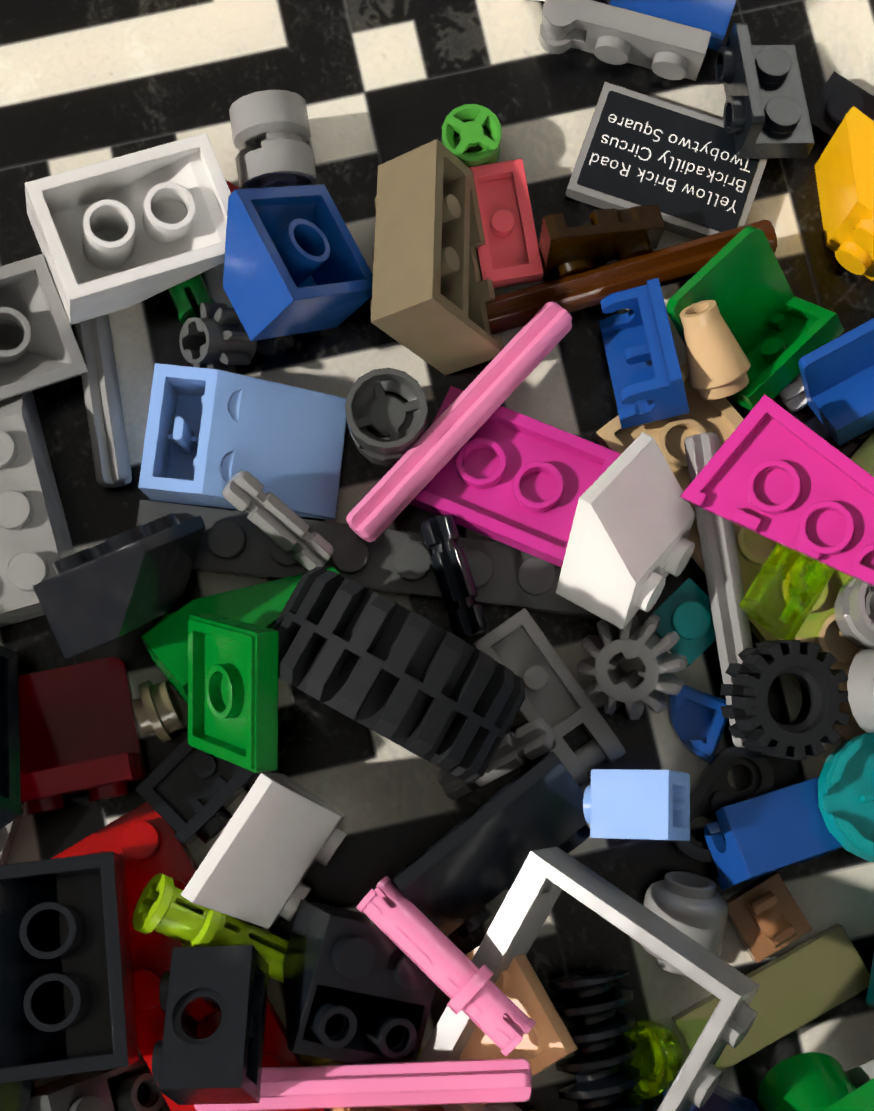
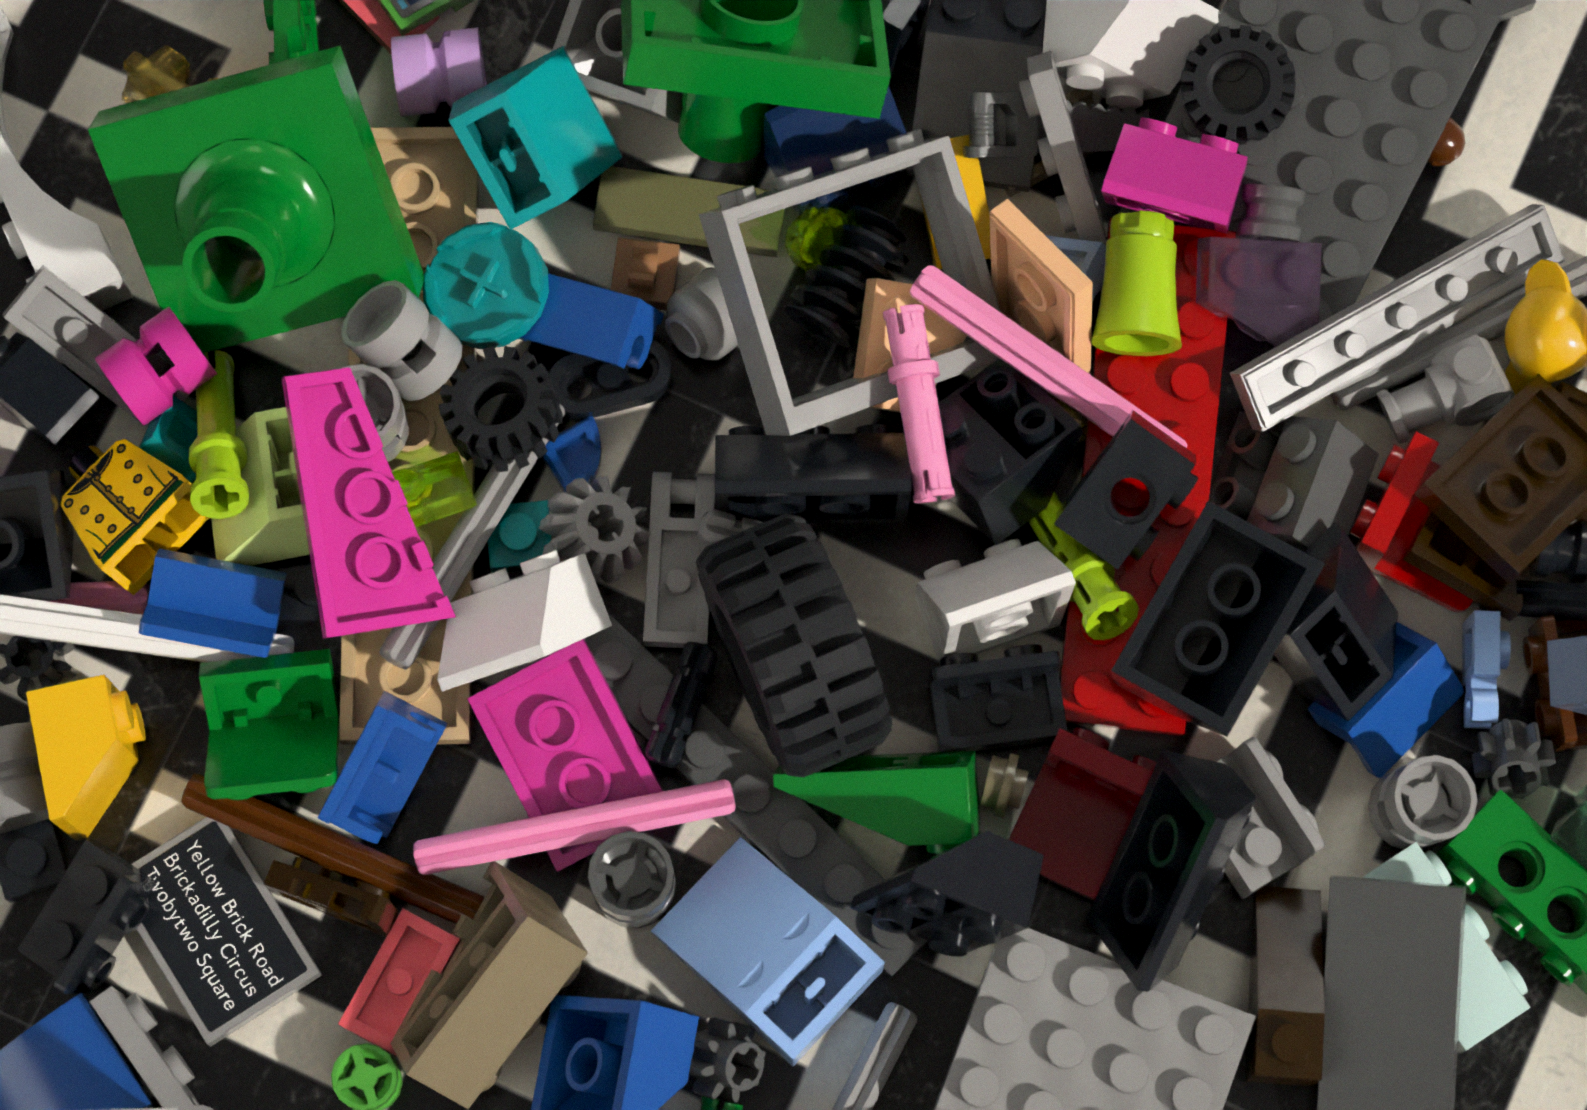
camera: 145 degrees left, 5 degrees down
(233, 691) = (926, 718): green tile -> none
(277, 520) = (790, 852): light grey axle -> none
(638, 805) = (679, 412): light blue slope -> none
(713, 354) = (328, 716): tan cone -> none

